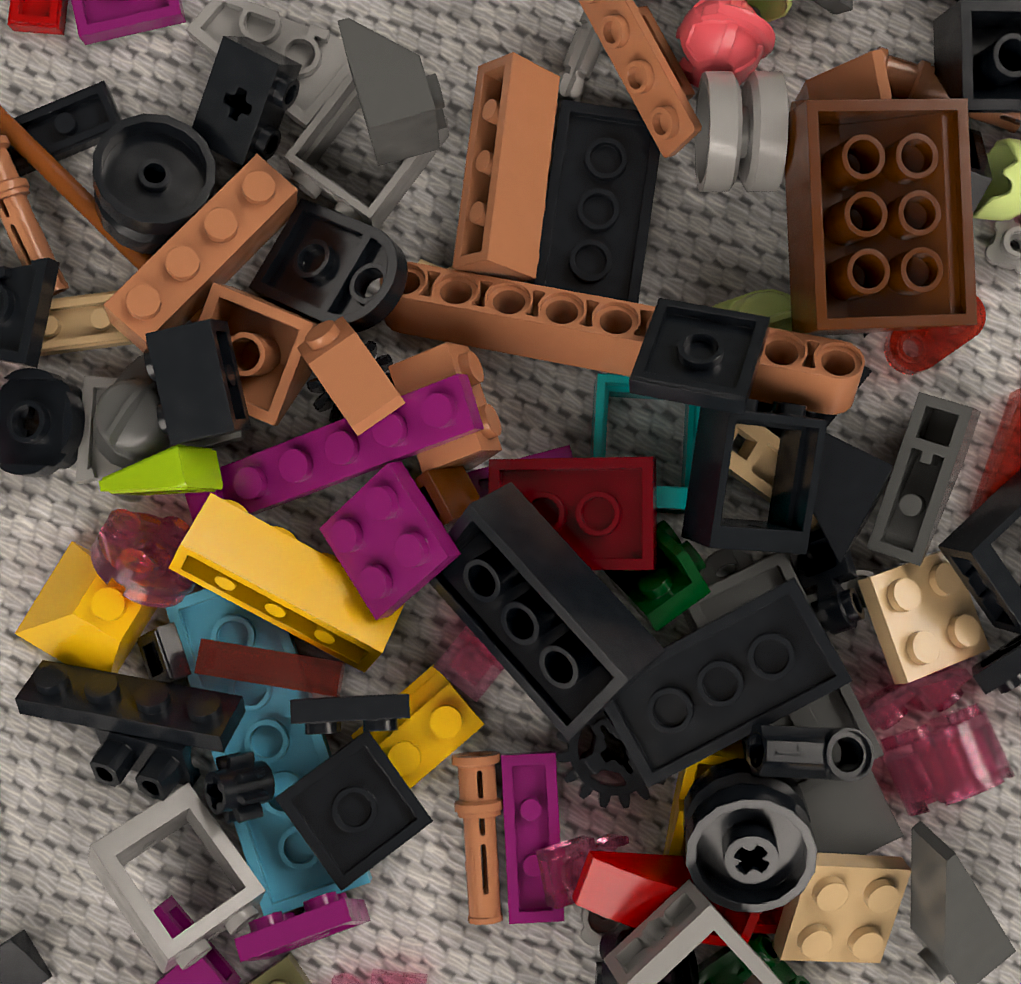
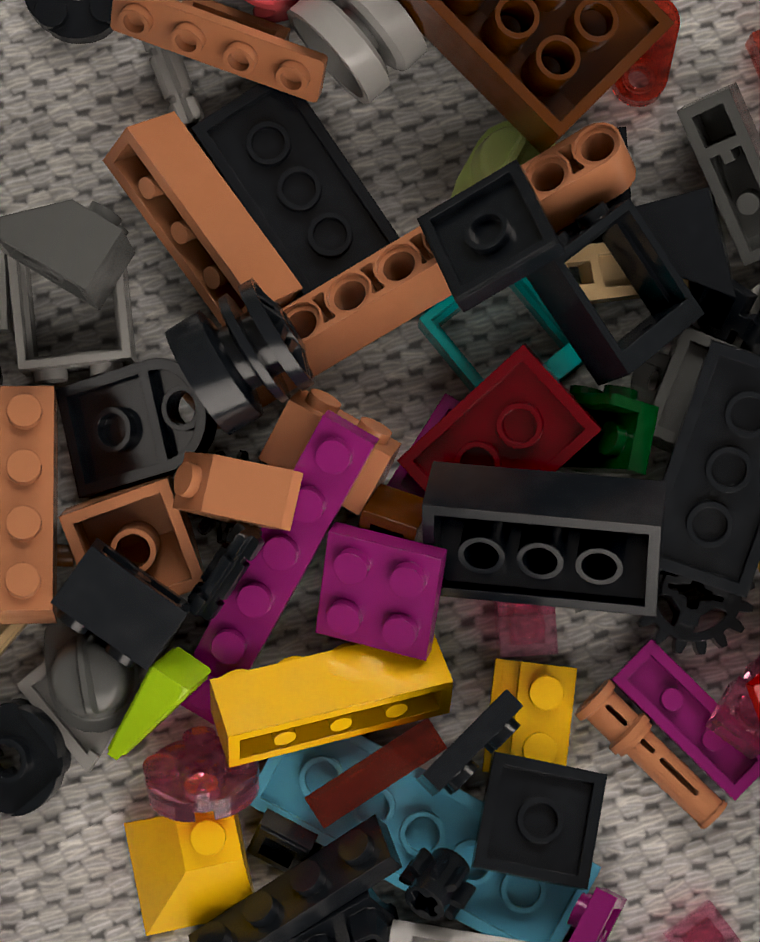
camera: 40 degrees left, 0 degrees up
(292, 425) = (225, 570): none -> black axle
(427, 277) = (239, 357): none -> black wheel

